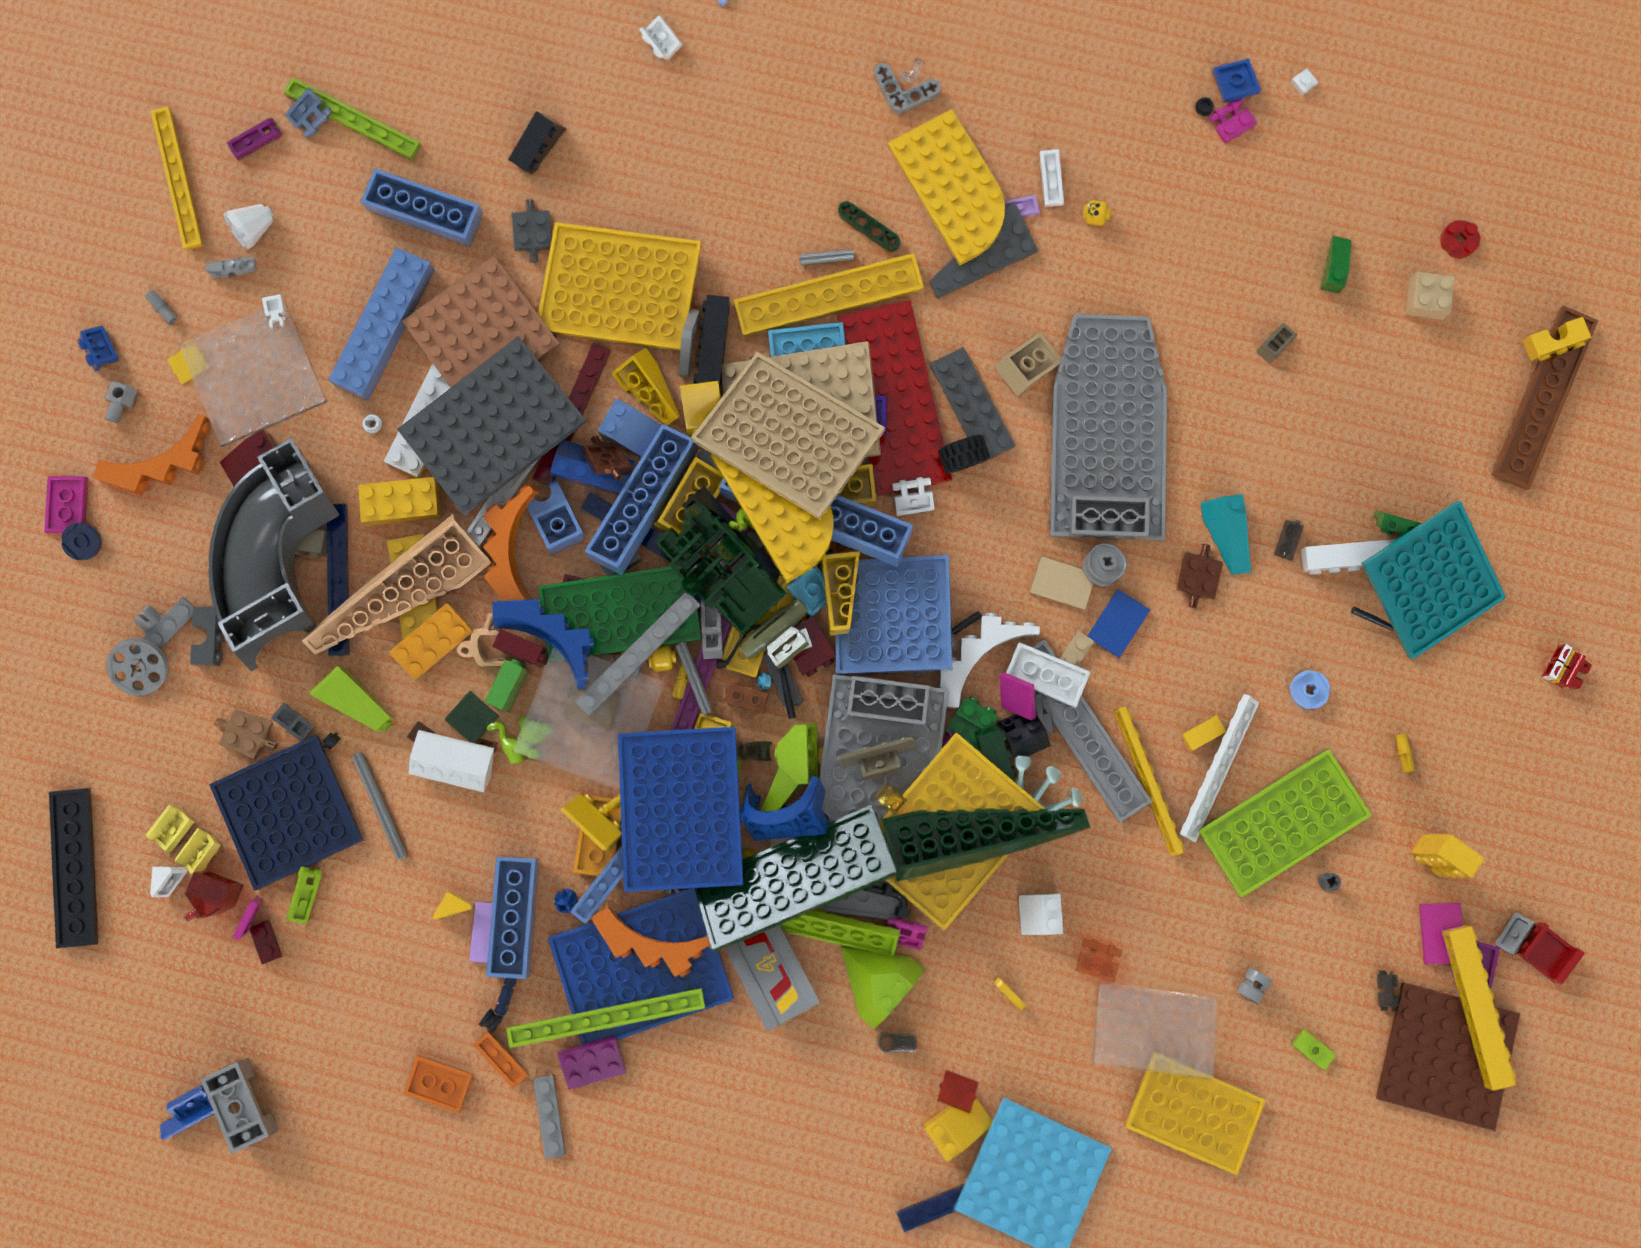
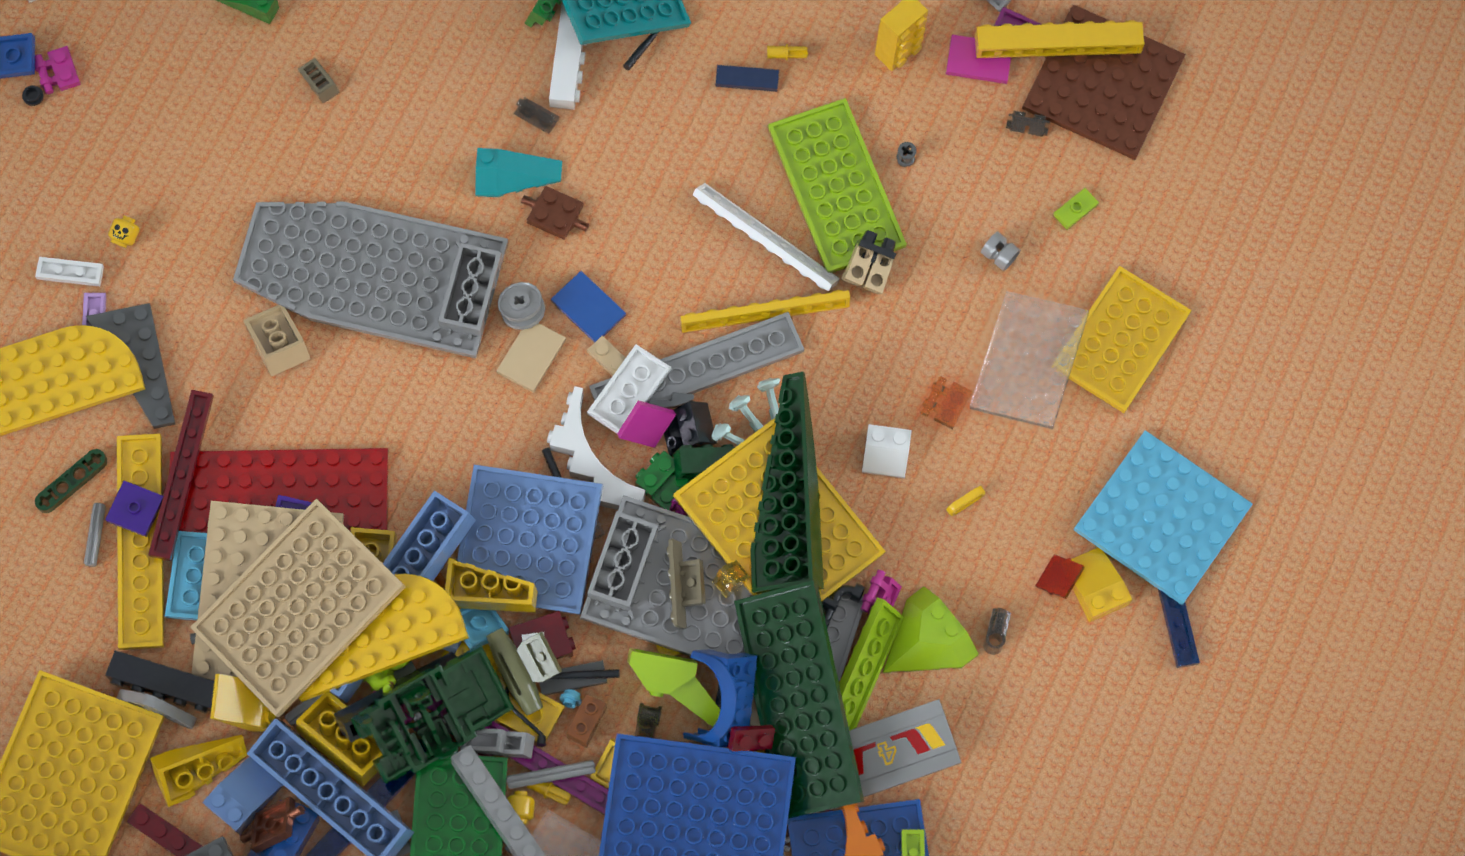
camera: 85 degrees left, 10 degrees down
(752, 843) = (751, 738): none -> dark red plate
(853, 283) = (134, 508): none -> dark purple plate
(889, 313) = (181, 475): none -> dark red plate
(913, 502) = (404, 492): white plate -> none
(963, 453) = (364, 425): black tyre -> none
(971, 401) = (308, 410): dark grey plate -> none
(1203, 733) = (725, 245): yellow slope -> none
(1213, 868) = (870, 263): none -> tan hips
(1320, 692) = (706, 119): light blue plate -> none
(1370, 721) = (747, 78): none -> dark blue tile

